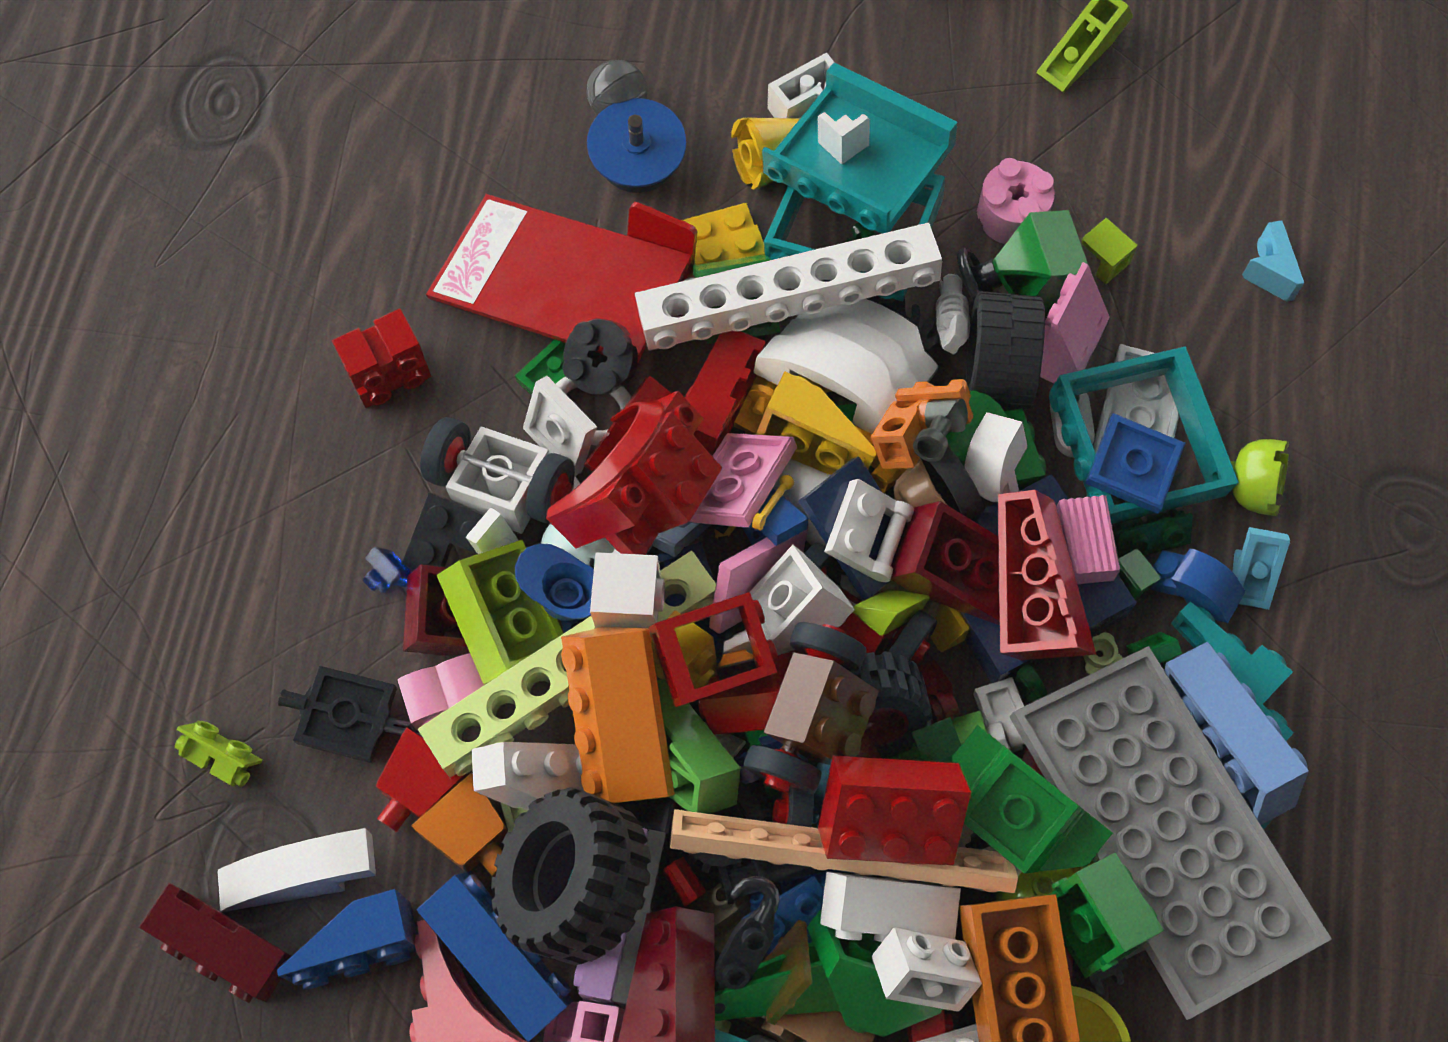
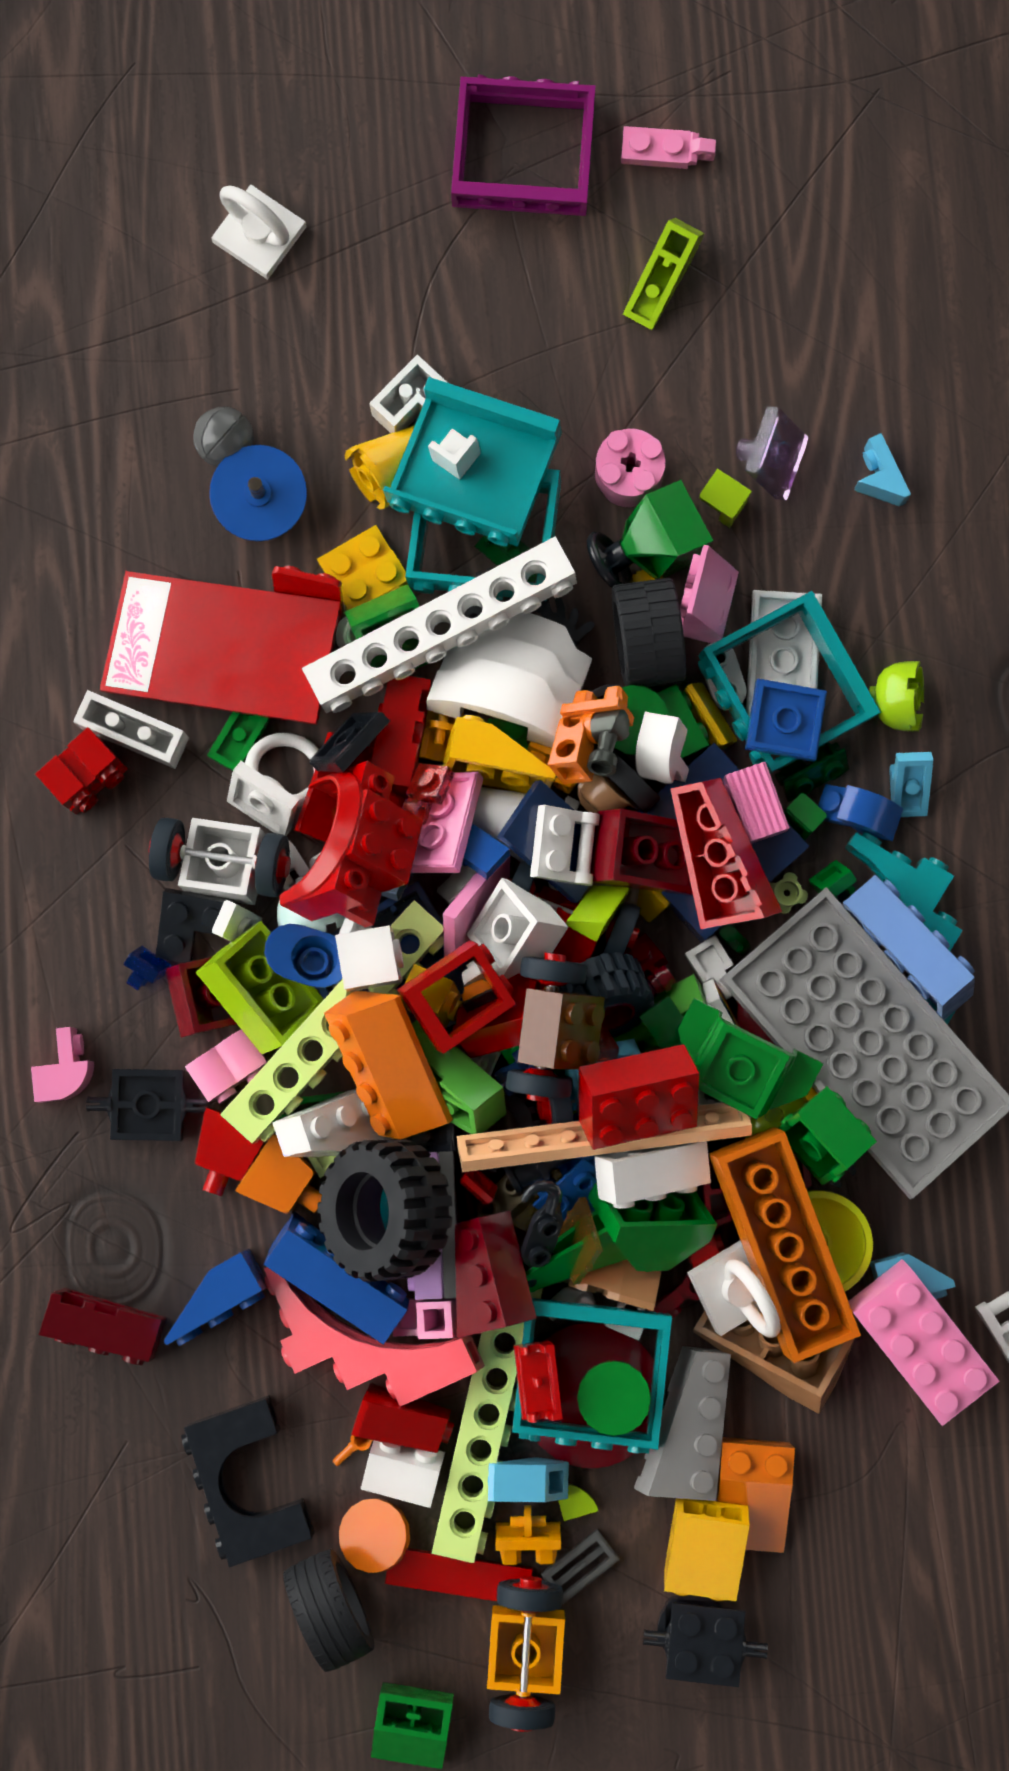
camera: 10 degrees left, 15 degrees up
(231, 756) = (62, 1166): lime hinge -> none
(268, 663) = (68, 1077): none -> bright pink brick
(297, 870) = (149, 1251): white slope -> none
(448, 333) = (131, 729): none -> white brick
(581, 365) = (267, 737): black plate -> none
(665, 379) = (349, 741): none -> black tile
(736, 441) = (427, 787): none -> clear red plate
(786, 482) = (481, 816): yellow hinge -> none
(926, 969) = (692, 1216): white brick -> none
(952, 314) = (594, 602): white hinge -> none
(1049, 450) = (710, 716): none -> yellow slope
(1167, 216) = (774, 453): none -> clear purple tile

